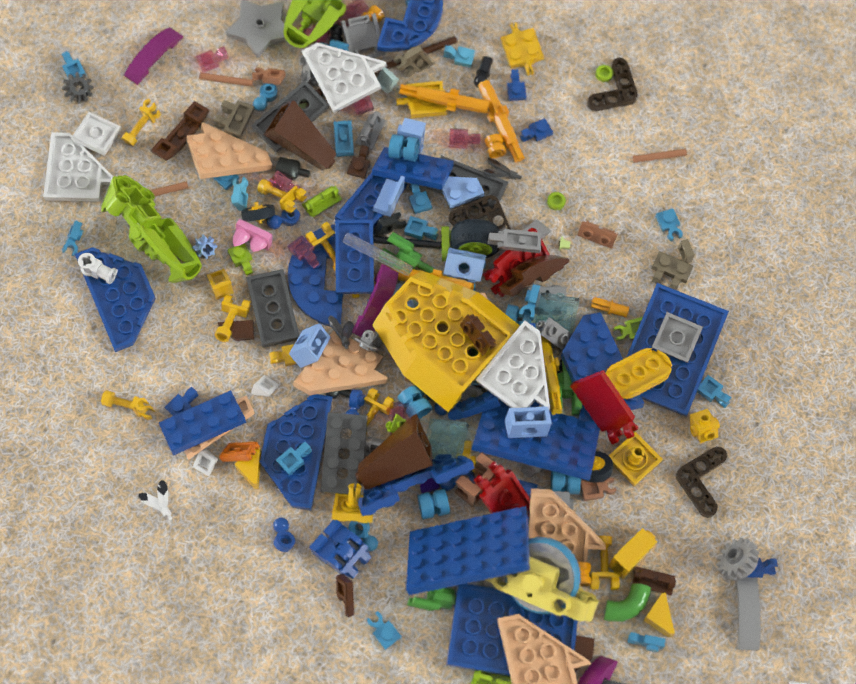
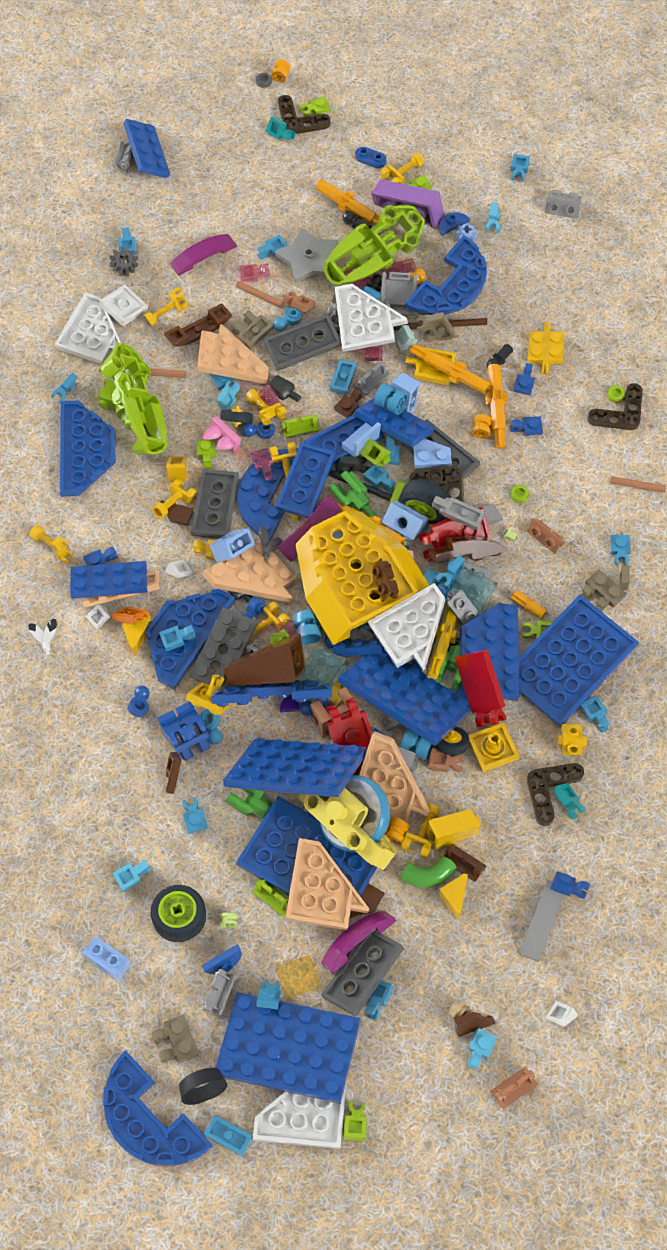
camera: 25 degrees right, 5 degrees down
(96, 268) = (72, 418): white connector -> none
(120, 231) = (105, 395): none -> lime brick
(204, 246) = (180, 434): light blue gear -> none
(219, 27) = (271, 246): none -> dark azure plate
(298, 134) = (301, 361): reddish brown slope -> none
(370, 341) = (288, 558): light grey hinge -> none
(377, 254) = (326, 483): clear axle -> none
(403, 206) = (376, 453): none -> lime brick
(433, 504) = (285, 721): dark azure wheel -> none
(460, 138) = (452, 409): clear pink plate -> none
(461, 56) = (484, 338): medium azure plate -> none
(501, 170) = (477, 450): dark grey piece -> none
(528, 422) = (398, 673): light blue brick -> none
(639, 372) = (526, 667): yellow tile -> none
(651, 643) = (436, 915): dark azure plate -> none
(677, 337) = (577, 649): light grey plate -> none
(723, 483) = (567, 796): none -> teal plate
(738, 559) = (551, 870): light grey gear -> none

